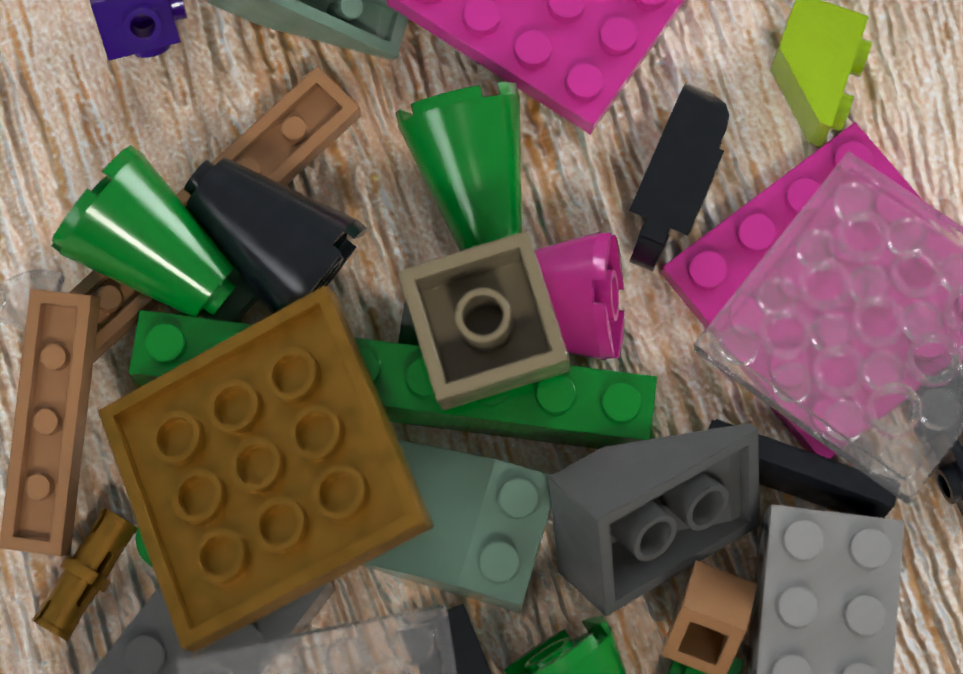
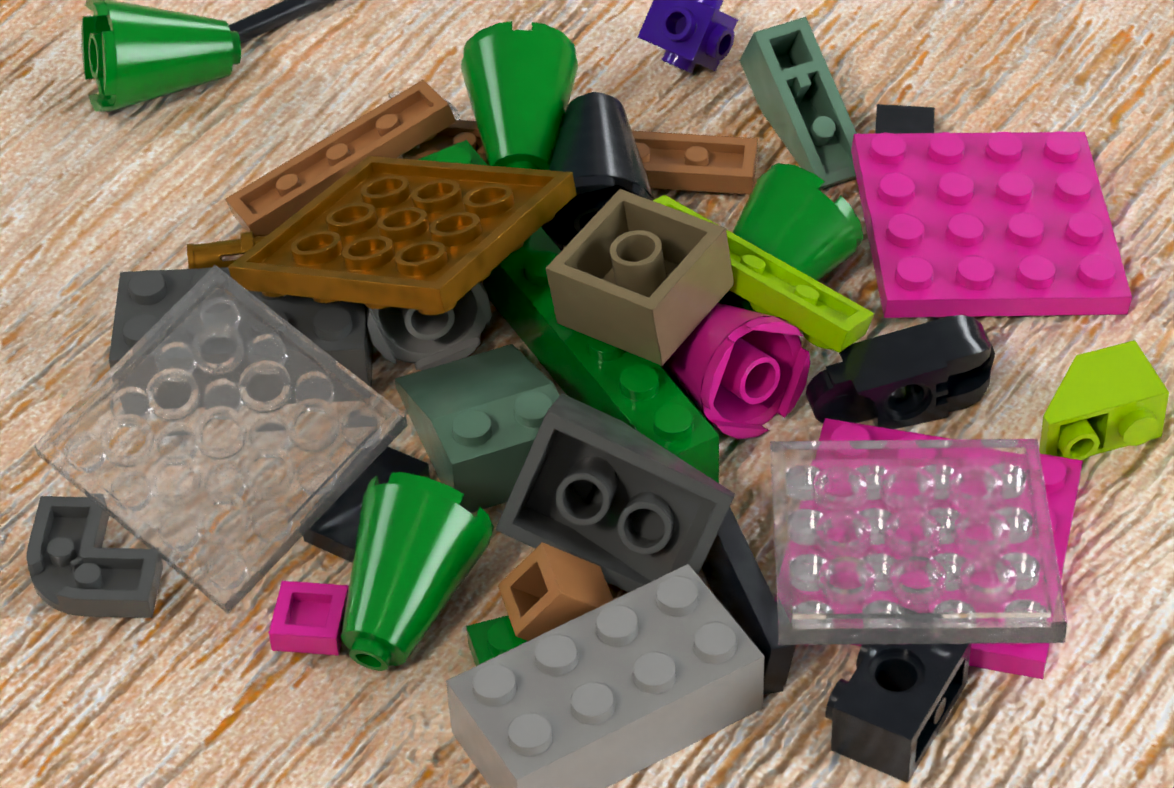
camera: 55 degrees right, 30 degrees down
(548, 208) = (787, 293): none -> lime plate

